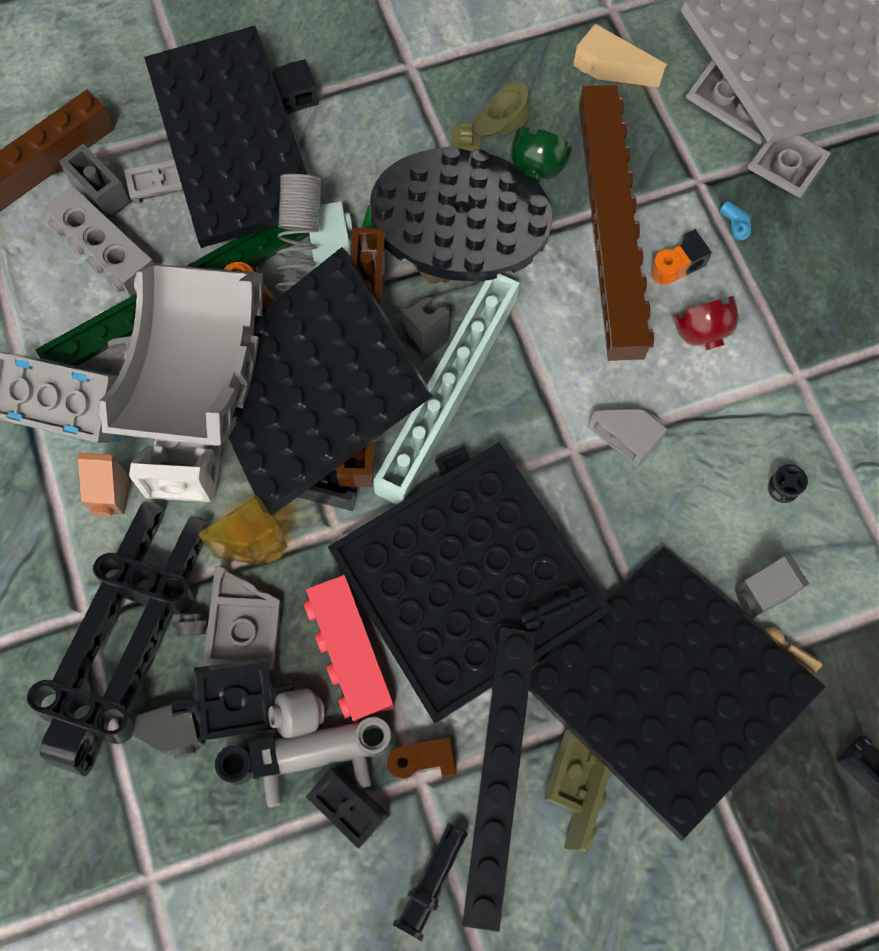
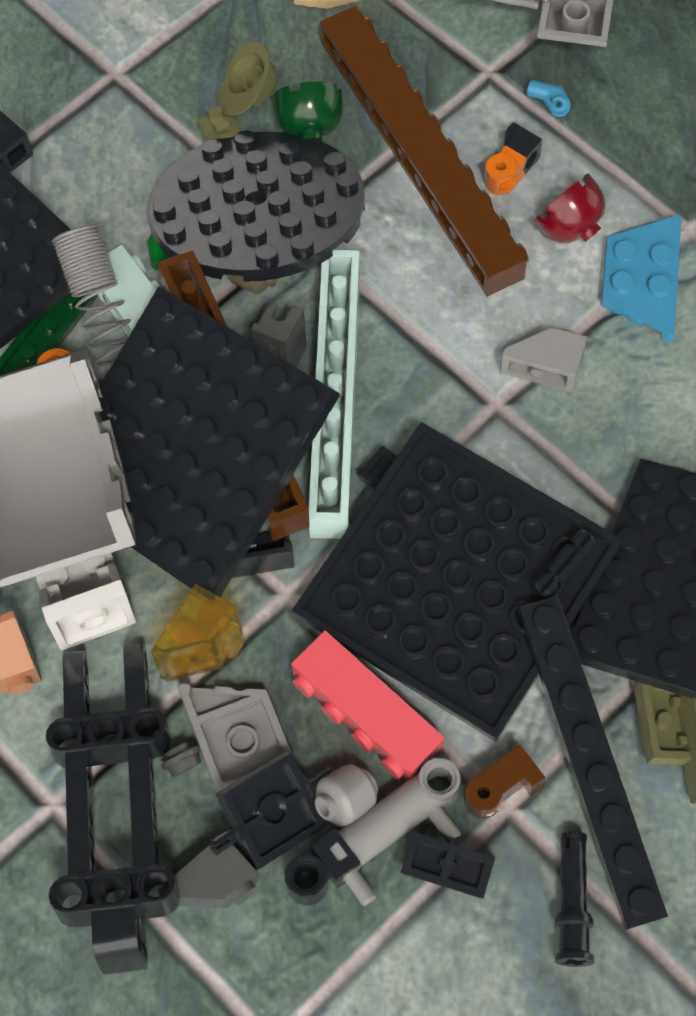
camera: 20 degrees left, 5 degrees down
(741, 397) = (643, 275): none -> dark azure wing

